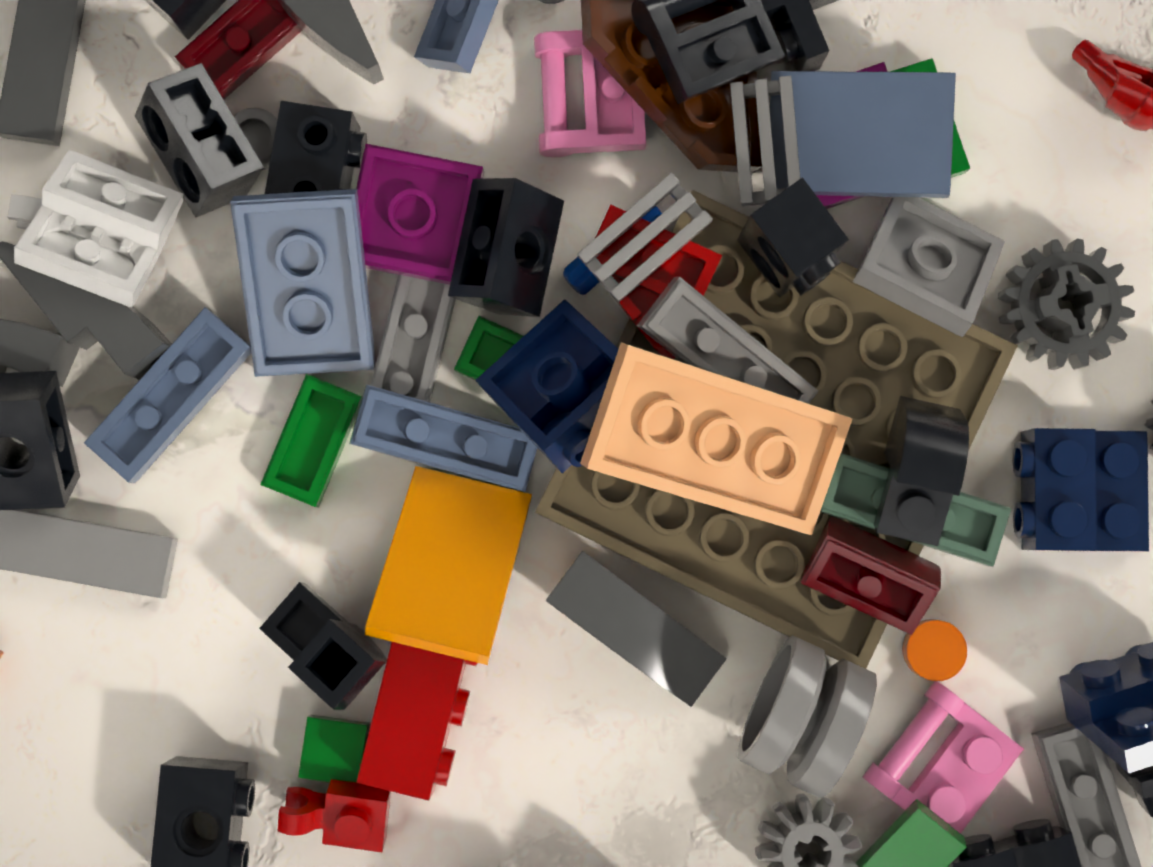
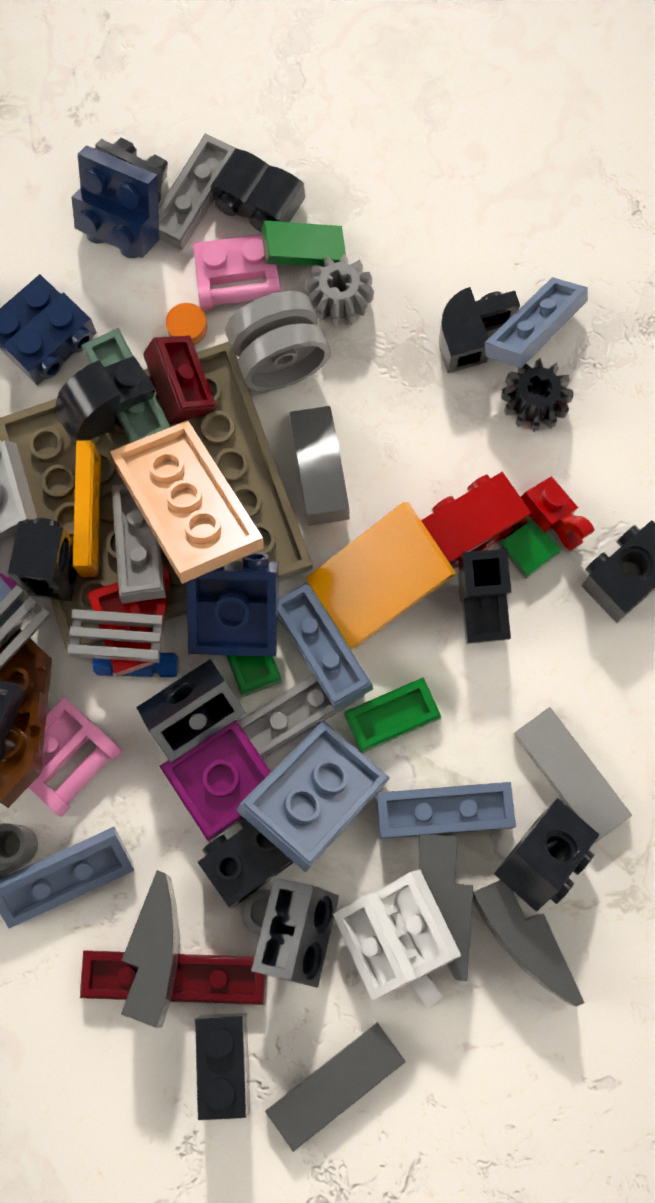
camera: 130 degrees left, 10 degrees down
(815, 340) = (87, 509): none -> light orange tile

